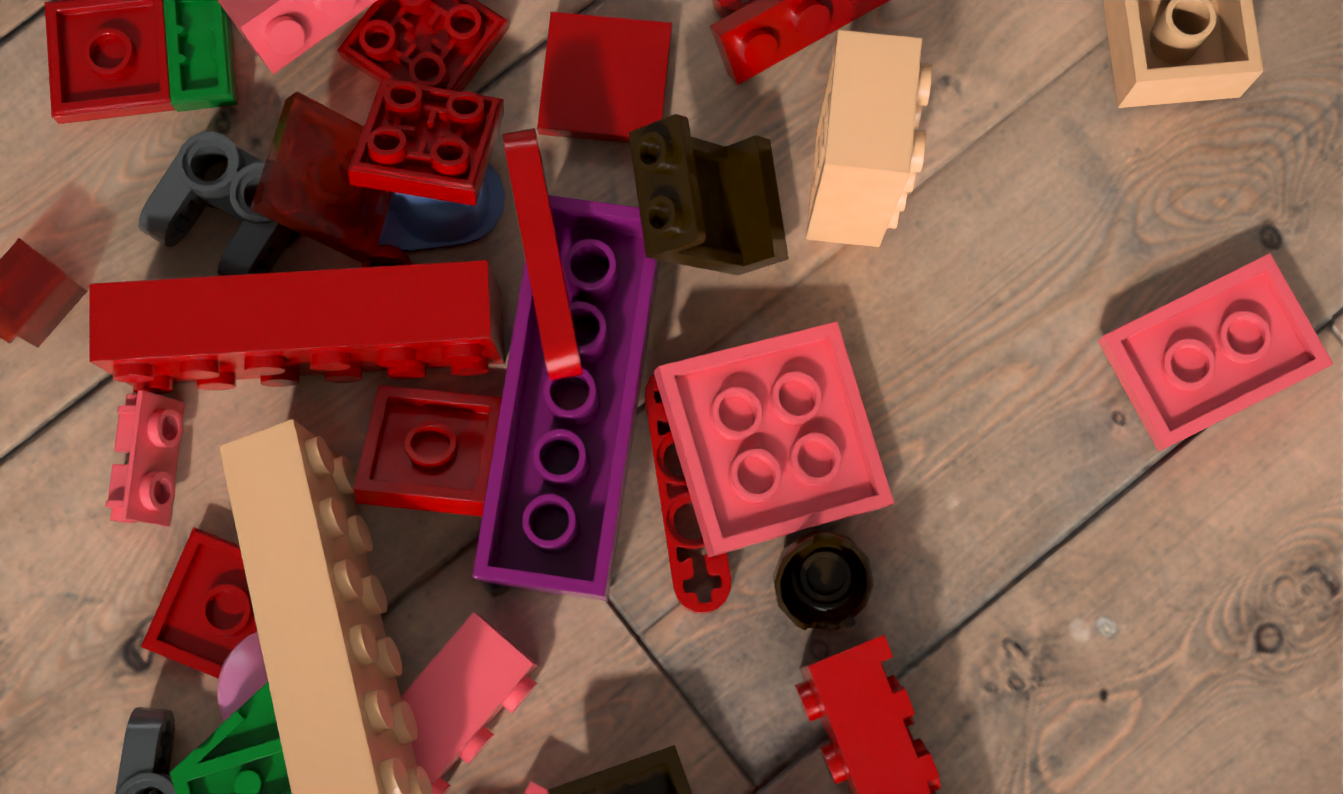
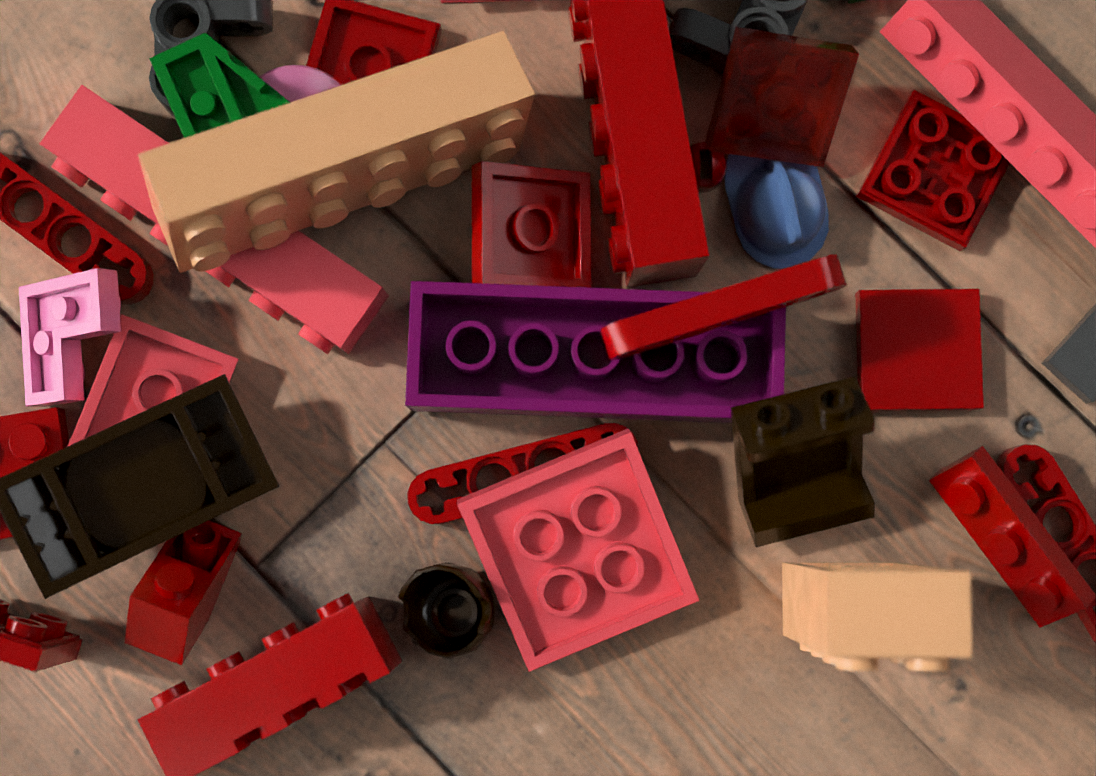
camera: 80 degrees right, 5 degrees up
(427, 142) = (827, 185): red tile -> none

